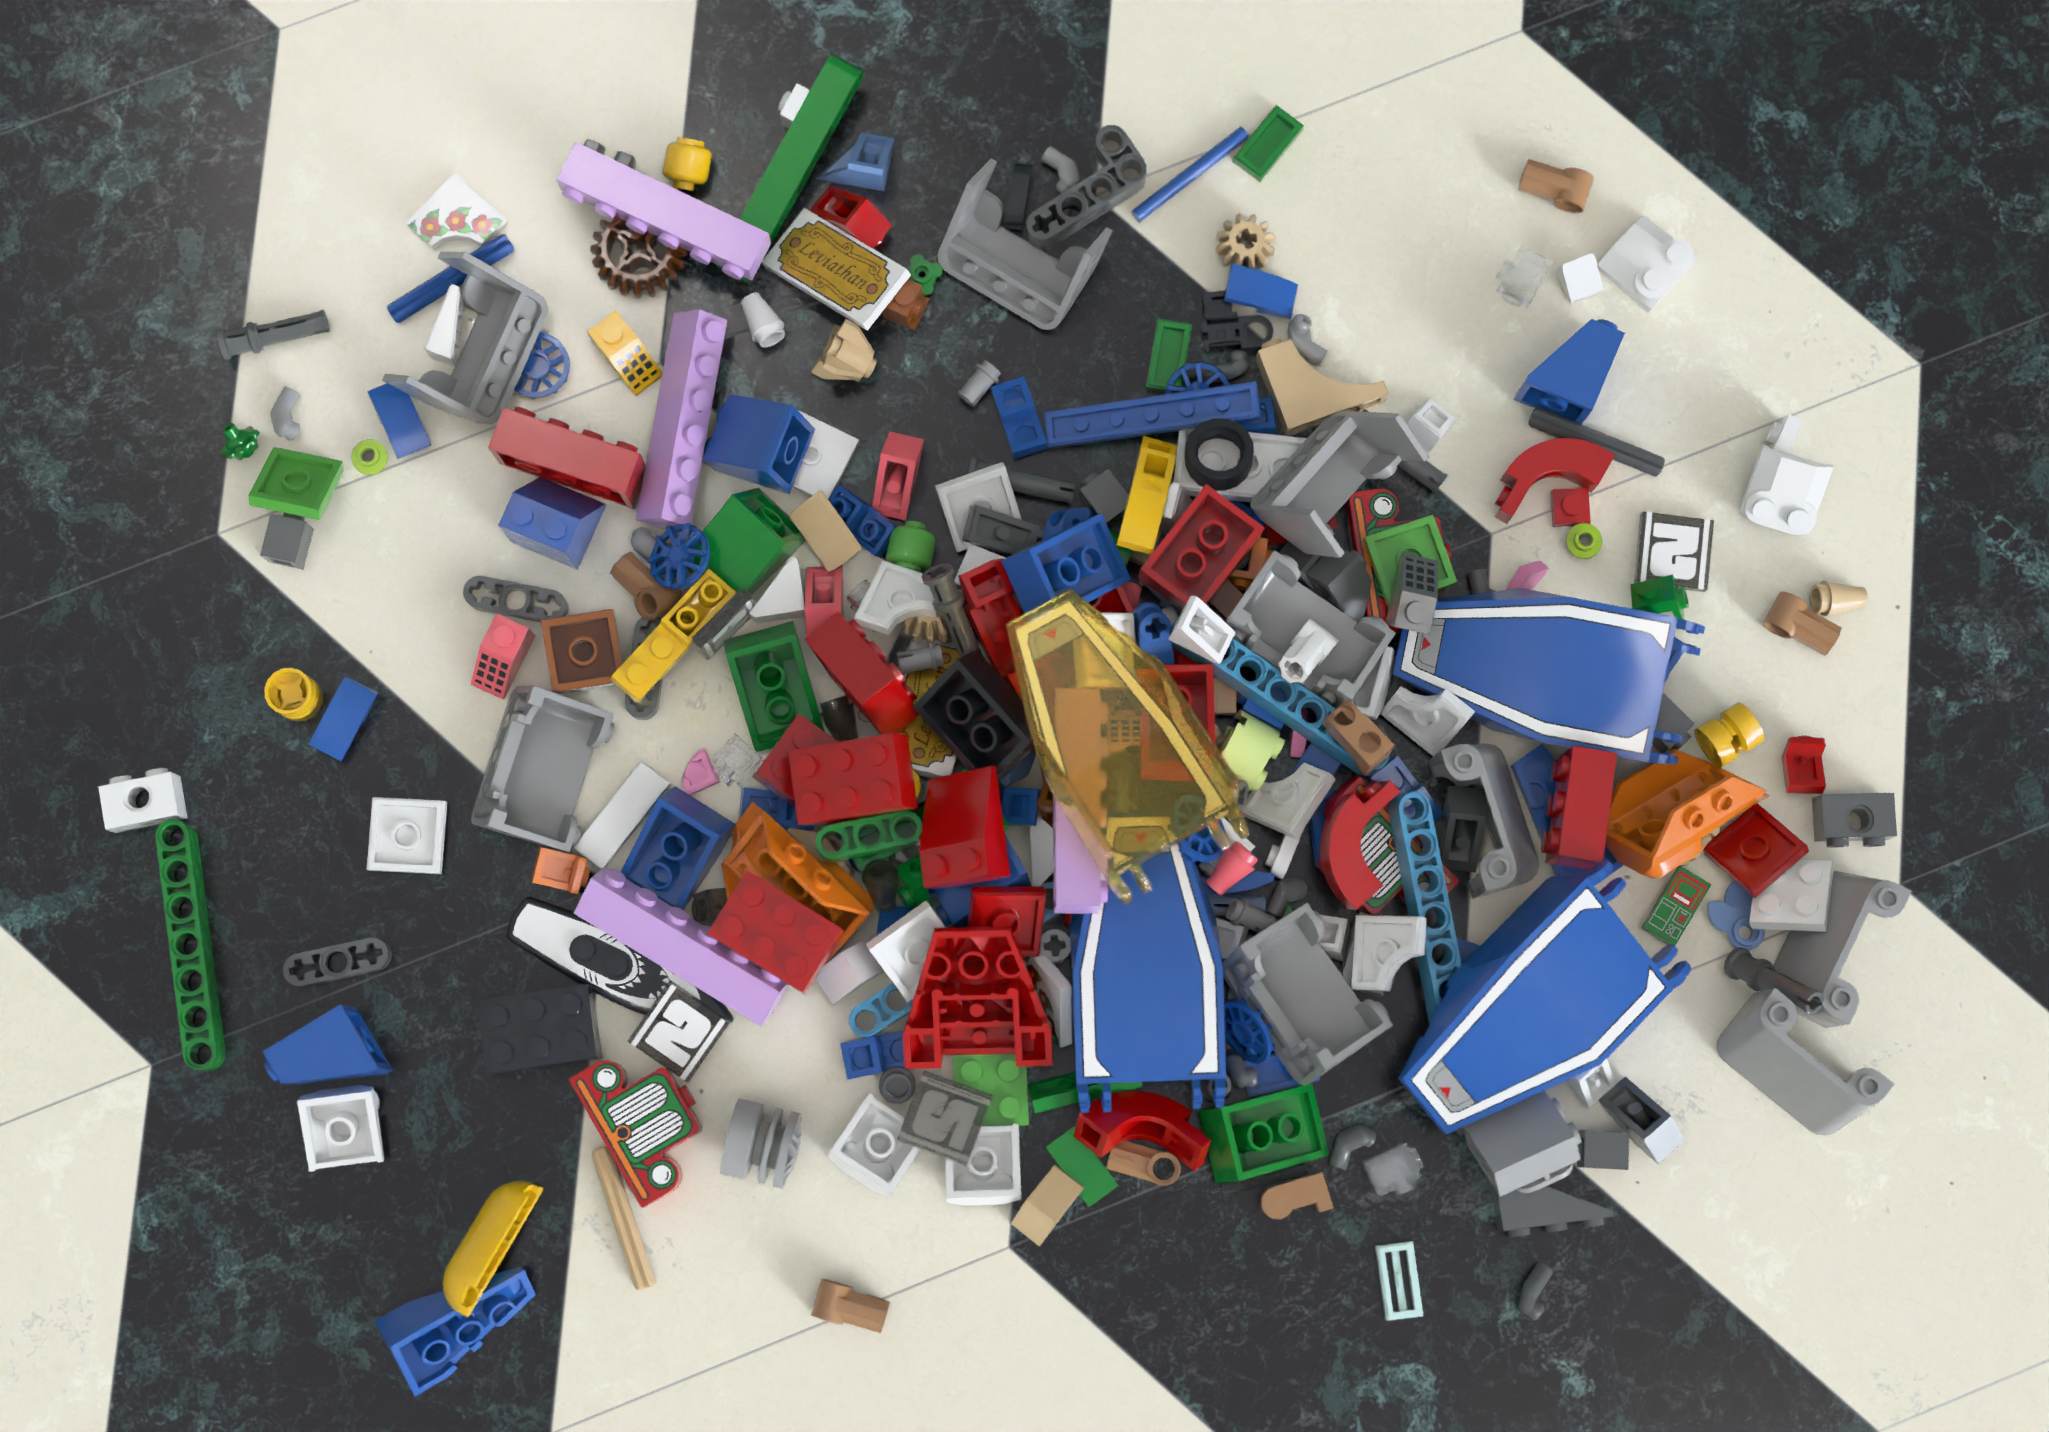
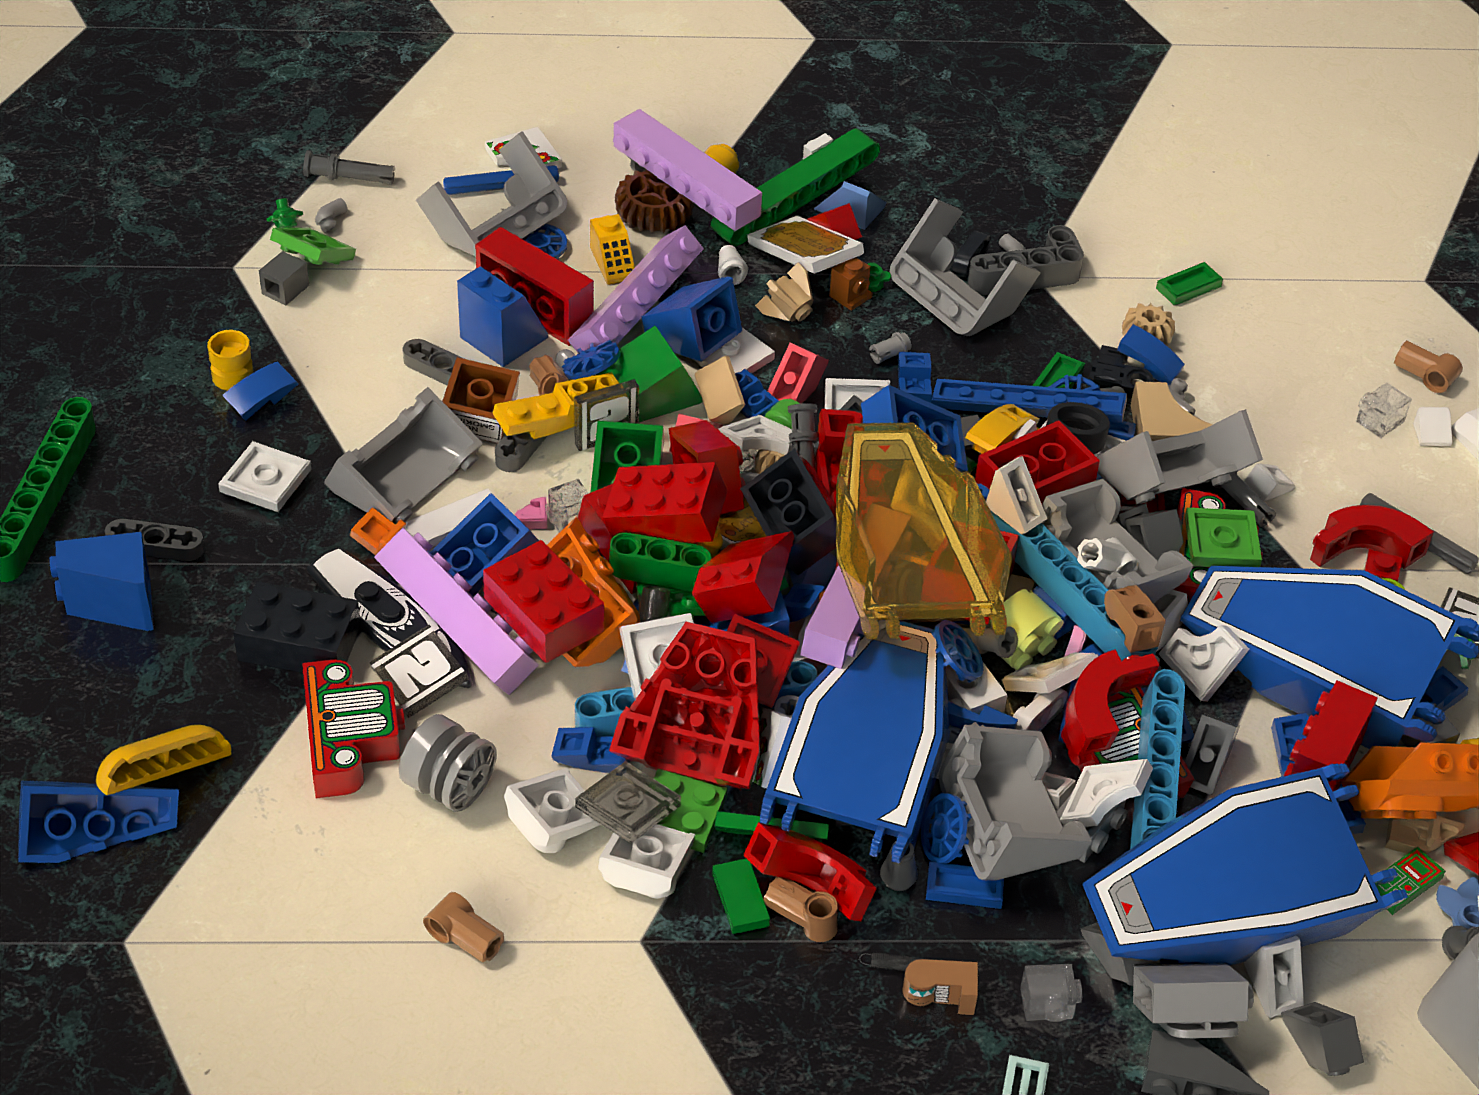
camera: 20 degrees right, 35 degrees down
(164, 802) = (56, 383): white brick -> none
(341, 1126) = (84, 641): white slope -> none
(373, 466) = (378, 255): lime plate -> none
(399, 420) = (414, 239): blue slope -> none
(446, 331) = (482, 200): white slope -> none
(501, 656) = (408, 382): coral slope -> none
(623, 1218) = (290, 794): tan axle -> none
(783, 597) = (663, 413): white slope -> none
(848, 971) = (592, 674): white slope -> none
(897, 1085) = (592, 771): dark grey plate -> none
(1047, 1205) = (689, 908): tan slope -> none
(1189, 174) = (1115, 283): blue bar -> none
(1231, 868) = (980, 693): coral cone -> none
(1236, 1069) = (926, 858): dark grey arm -> none
(1264, 1133) = (928, 919): green slope -> none
(1350, 1140) = (1009, 961): dark grey arm -> none
(1414, 594) = (1216, 550): dark grey slope -> none
(1514, 854) = (1230, 694): light grey windscreen -> none
(1574, 373) = (1408, 467): blue slope -> none
(1603, 1150) = (1272, 1046): dark grey brick -> none

